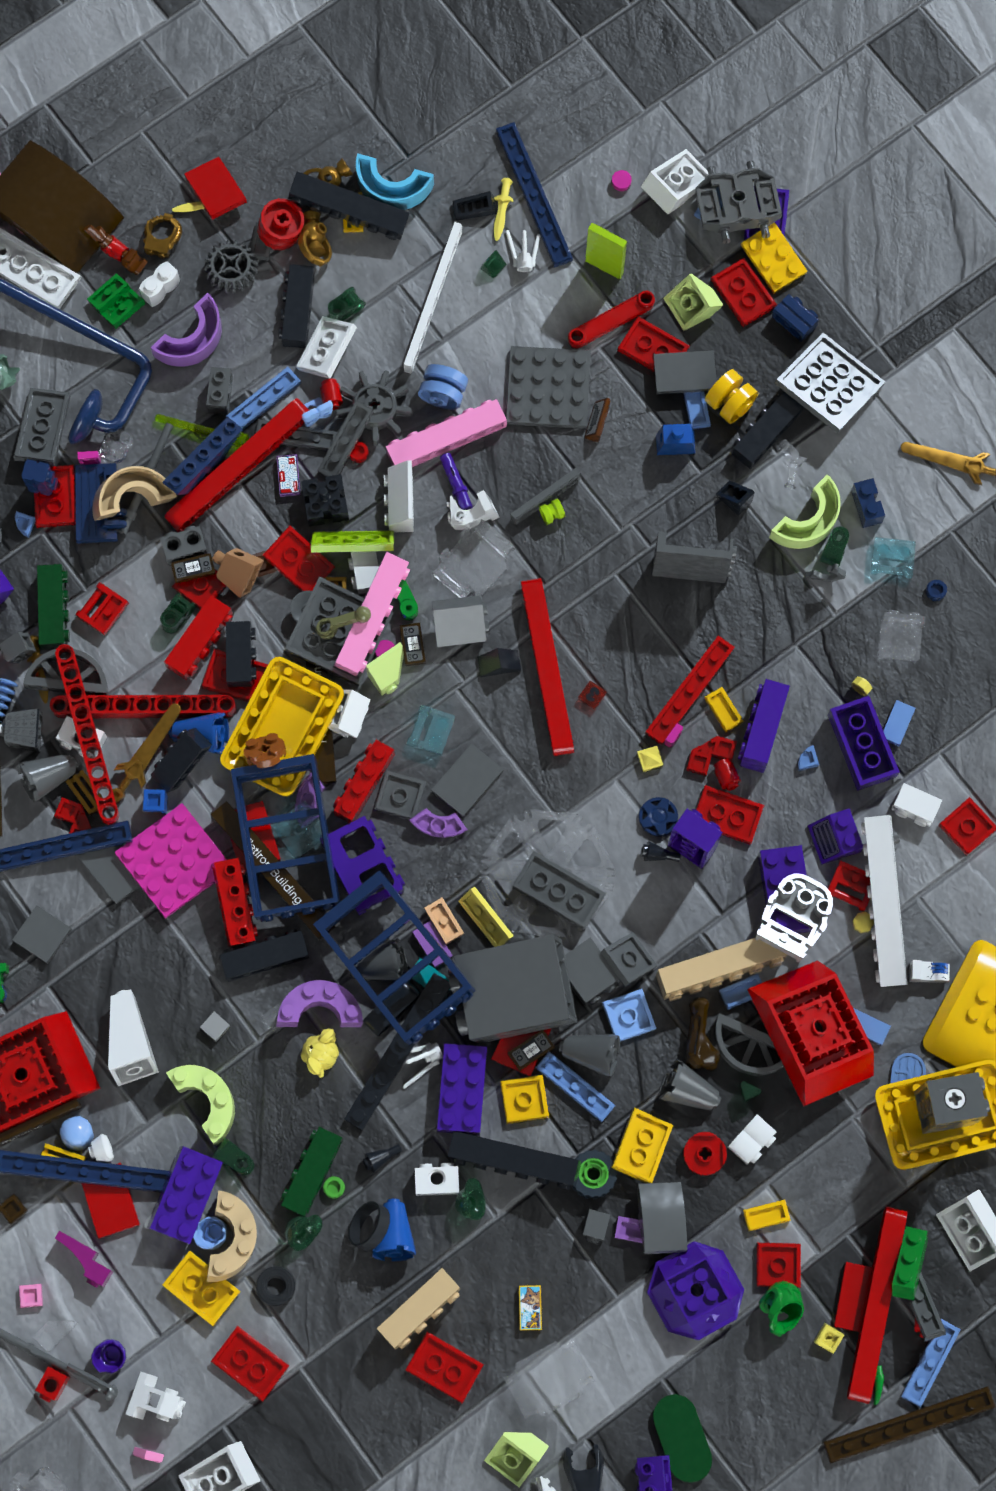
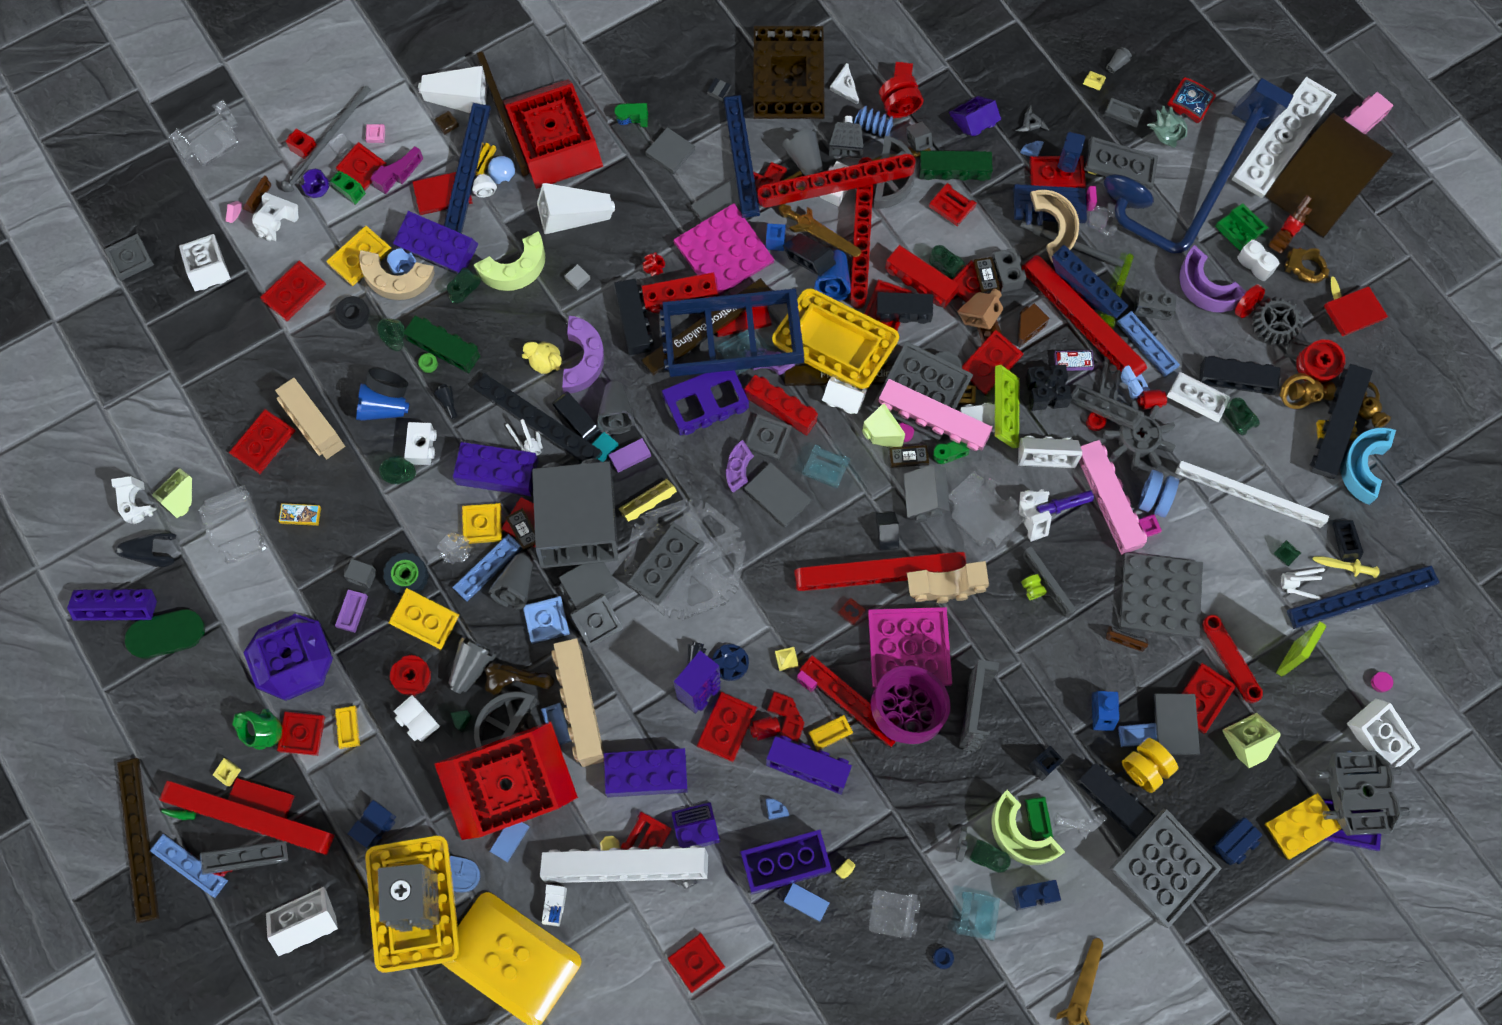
camera: 95 degrees right, 5 degrees down
(79, 1304) = (360, 165): none -> red tile
(108, 1318) = (347, 186): none -> green leg
(123, 1431) = (256, 196): none -> reddish brown slope
(197, 937) = (653, 264): none -> red gear
(217, 296) = (1247, 302): none -> red tile
(249, 521) = (1030, 323): none -> reddish brown slope
(256, 750) = (816, 322): dark orange plate -> none
(349, 904) = (616, 445): dark blue window -> none
(361, 615) = (931, 401): olive piece -> none
(444, 921) = (649, 465): light nougat plate -> none
(473, 398) = (1150, 525): none -> dark pink tile
(514, 1159) = (424, 507): black brick -> none
(557, 592) = (948, 585): none -> tan brick
(559, 1122) = (454, 548): none -> clear brick
(627, 634) = (910, 639): none -> dark pink plate
(662, 1218) = (355, 629): dark grey slope -> none
(689, 605) = (913, 684): none -> magenta wheel
(743, 292) = (1265, 793): red tile -> none
(790, 503) = (1038, 818): none -> green tile
(803, 901) = (629, 782): slope -> none
(869, 1170) = (372, 825): none -> dark blue brick
(909, 1263) = (276, 850): green brick -> none
(916, 805) = (720, 910): white brick -> none

